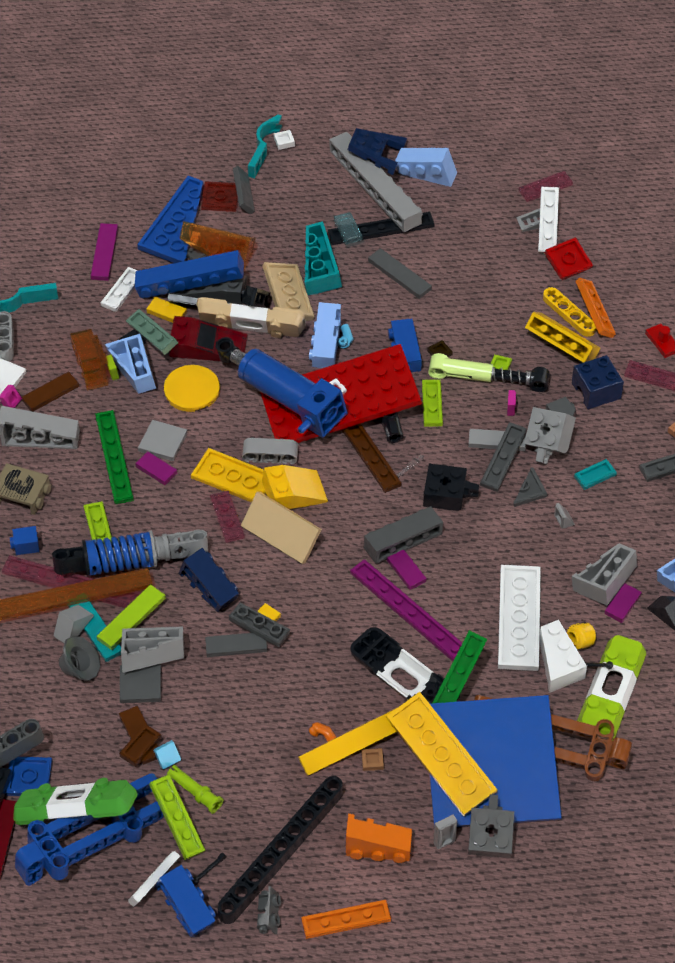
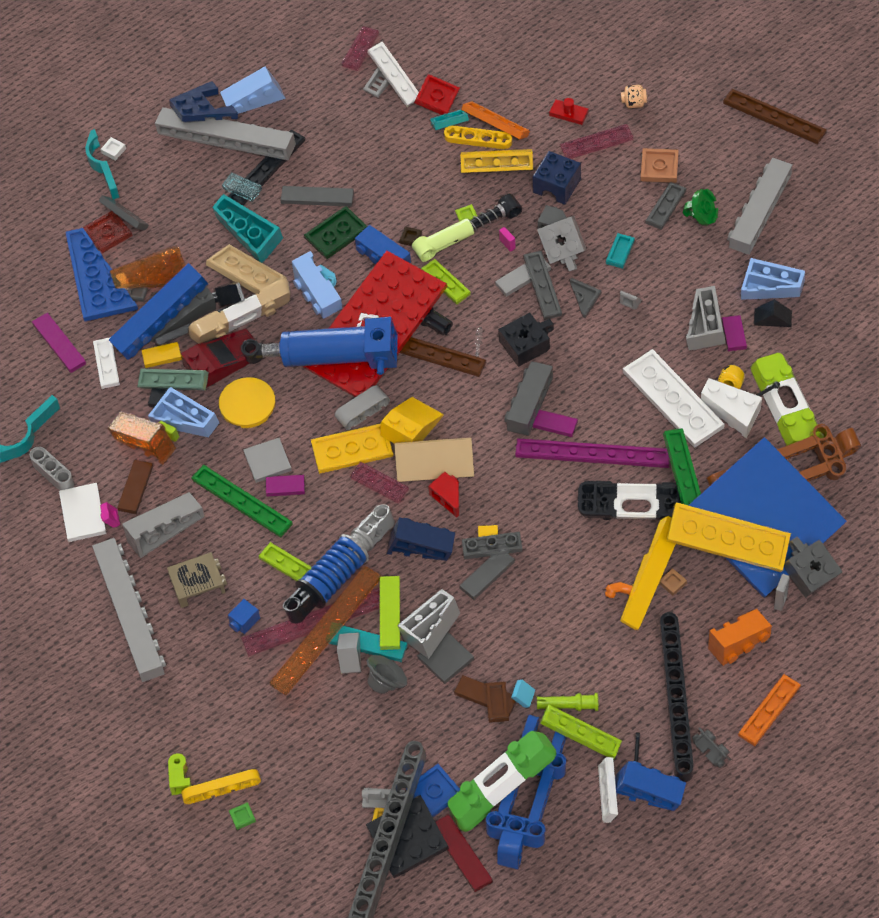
camera: 35 degrees left, 5 degrees up
(267, 560) = (446, 492): none -> red slope
(385, 308) = (335, 232): none -> dark green tile
(559, 283) = (449, 119): none -> teal tile

